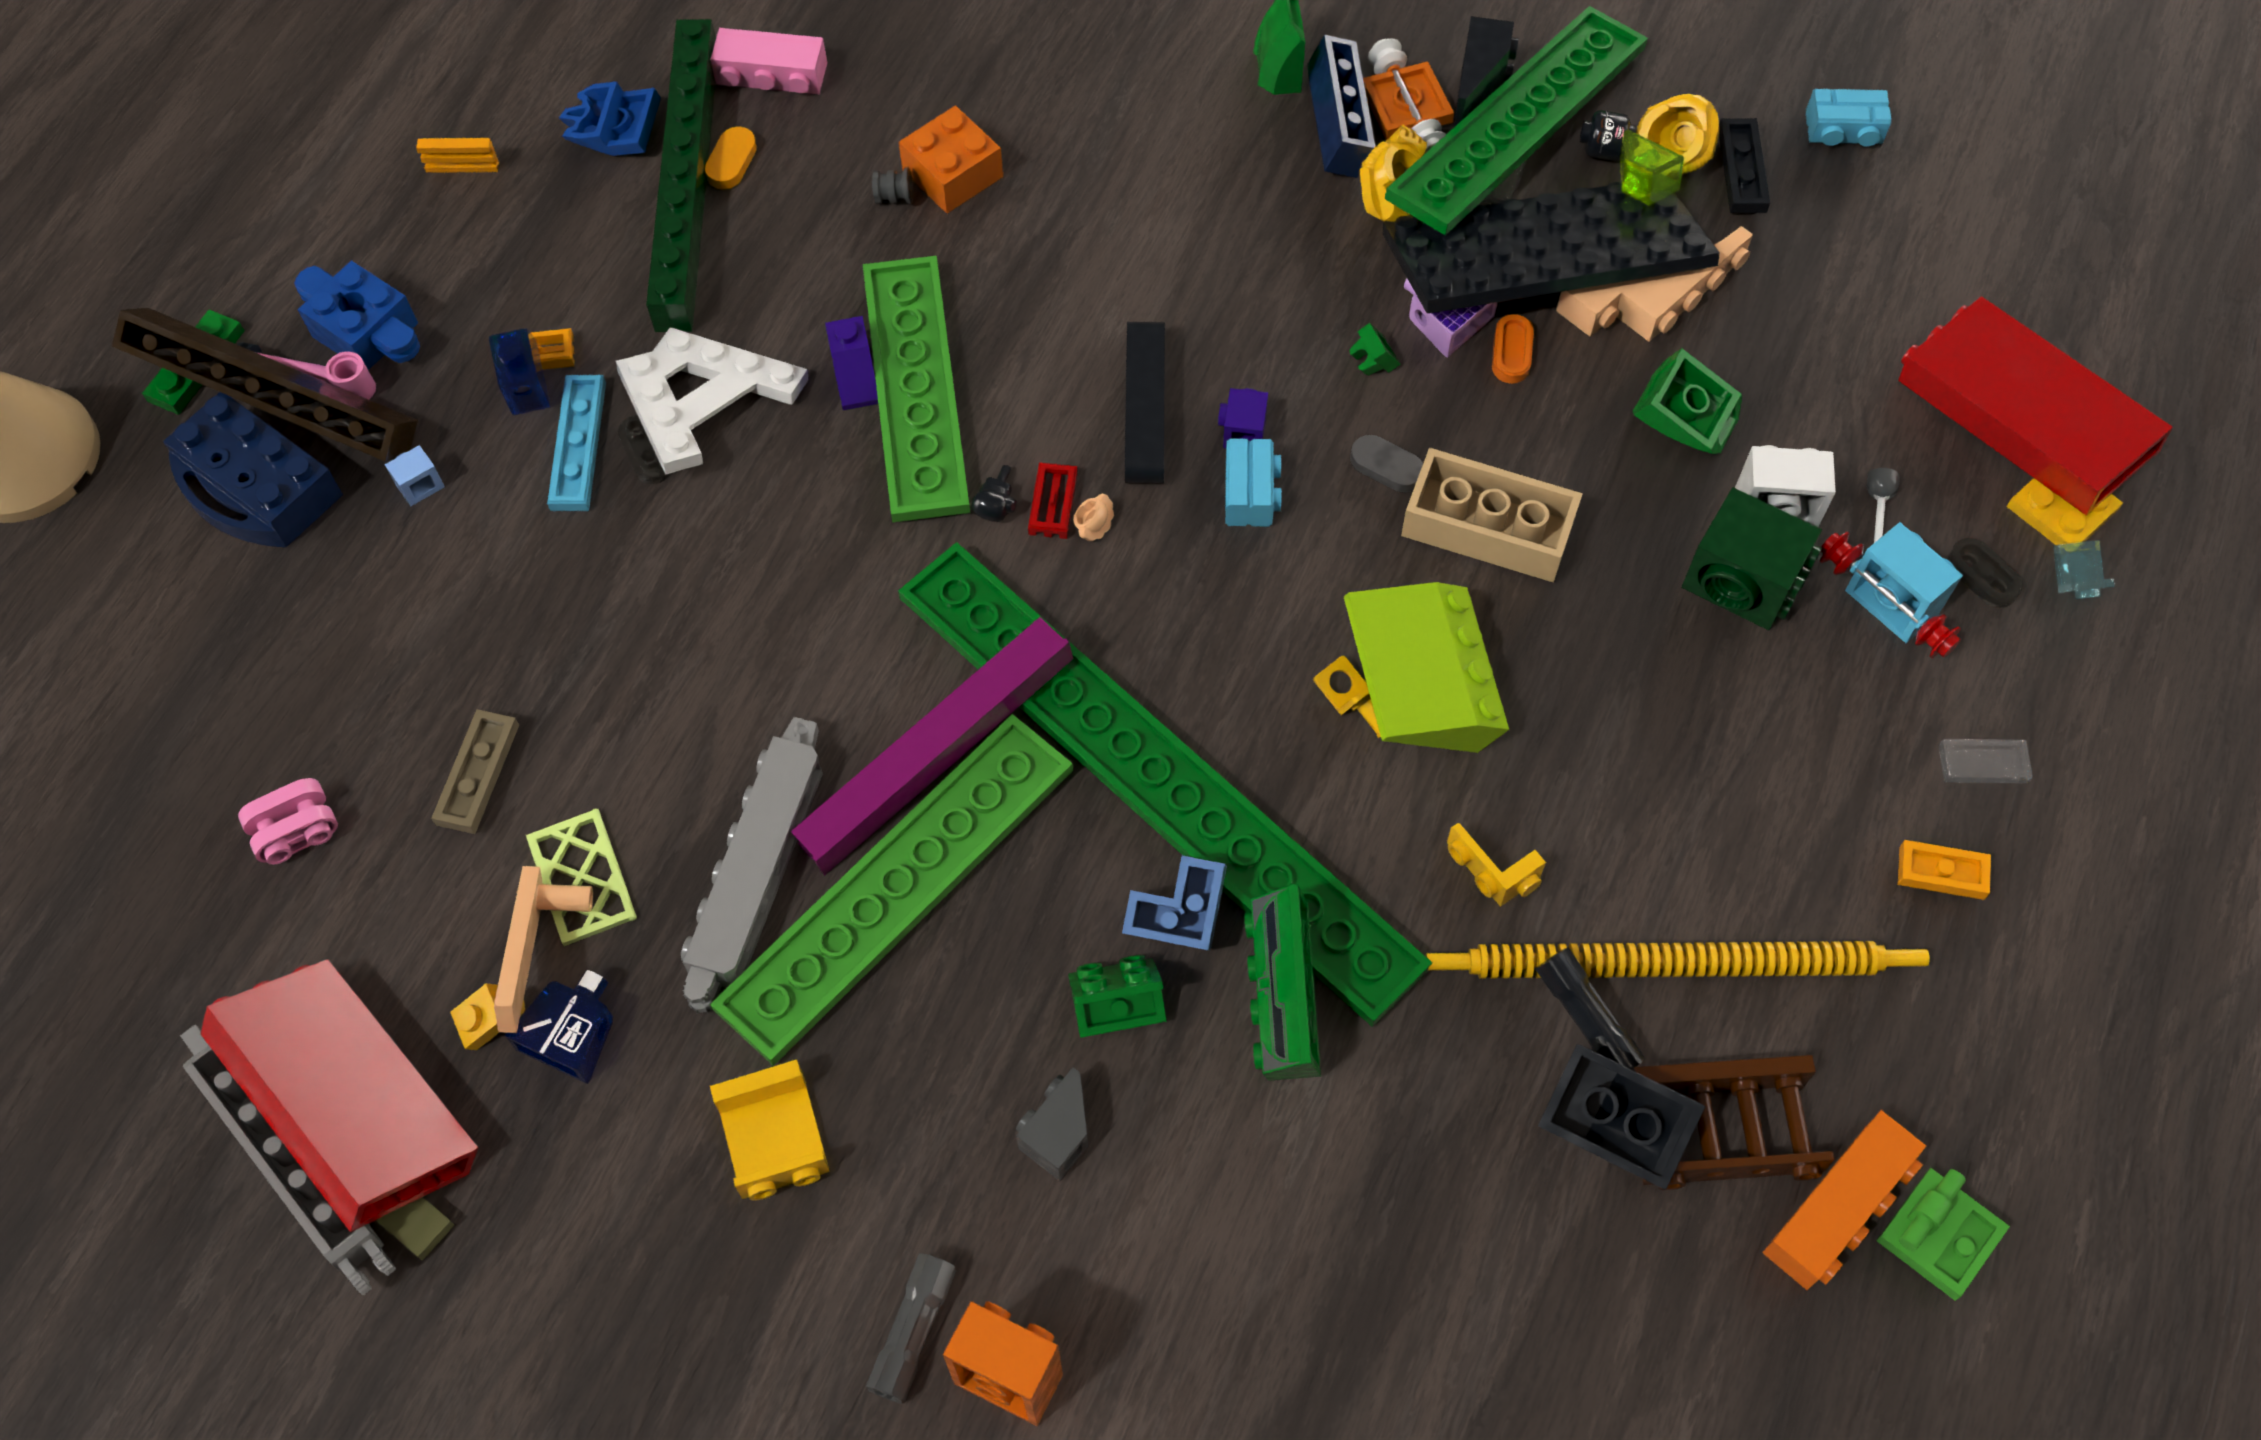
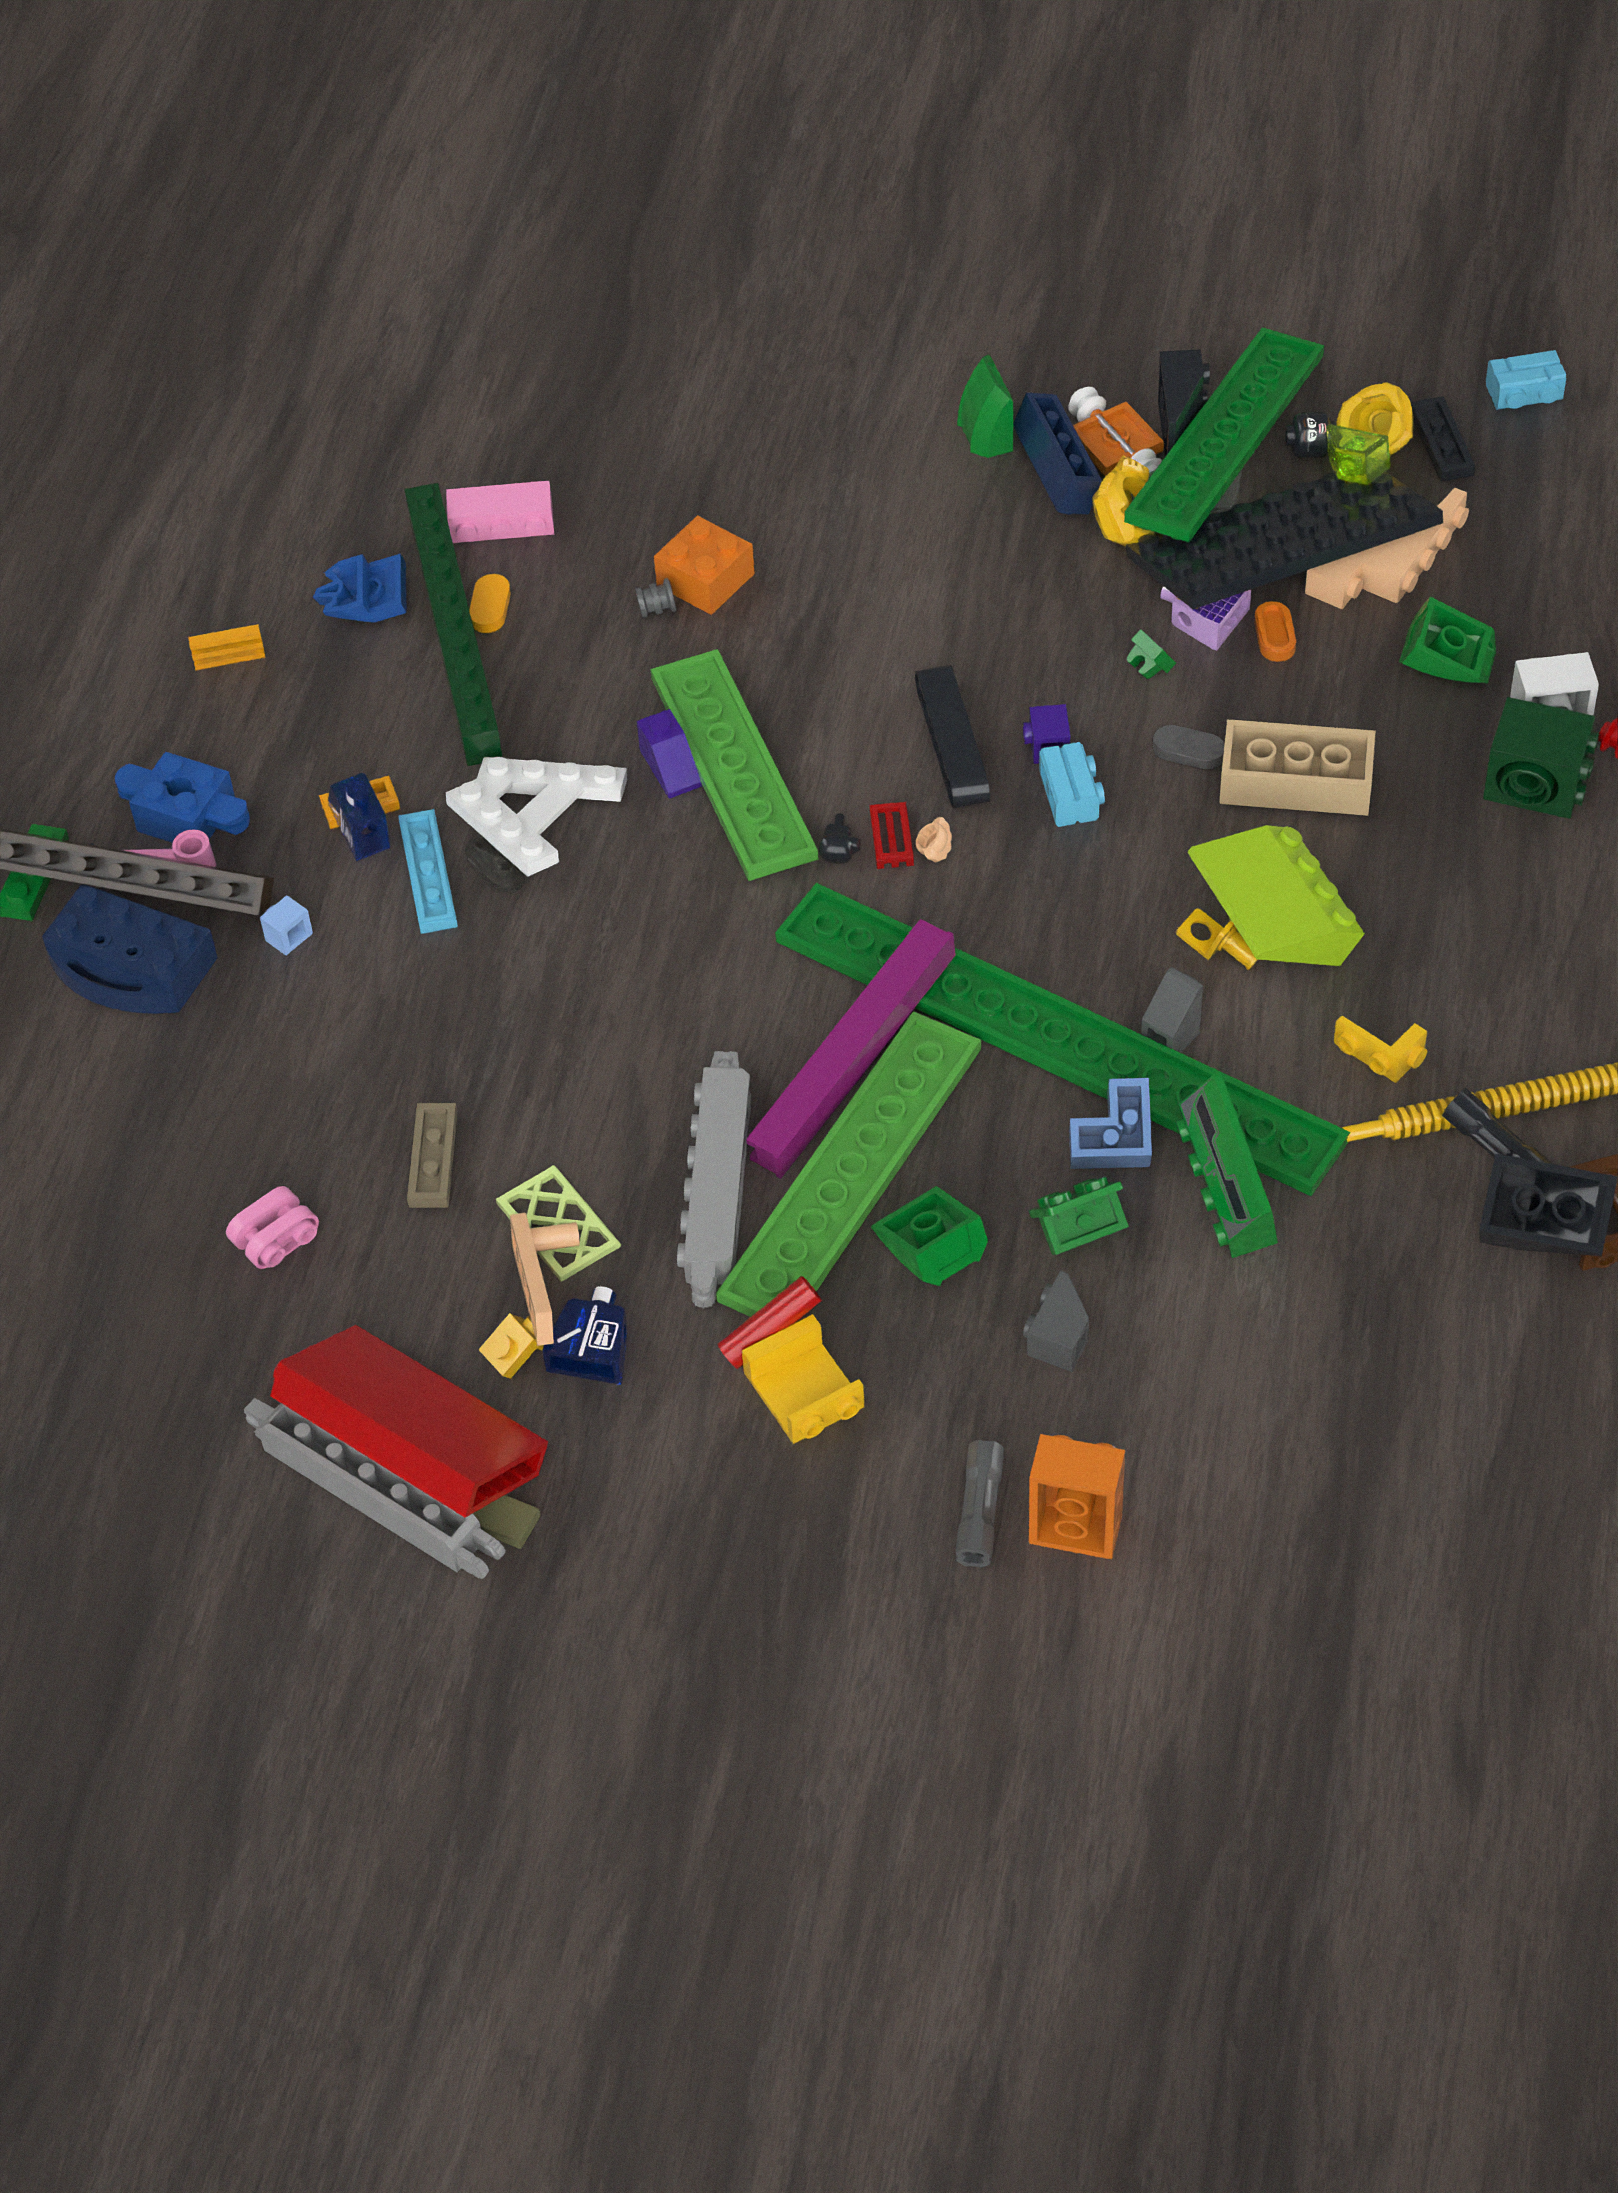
camera: 10 degrees left, 10 degrees down
(751, 1055) = (773, 1317): none -> piece
(954, 988) = (933, 1236): none -> green slope
(1281, 779) = (1174, 1011): none -> dark grey slope

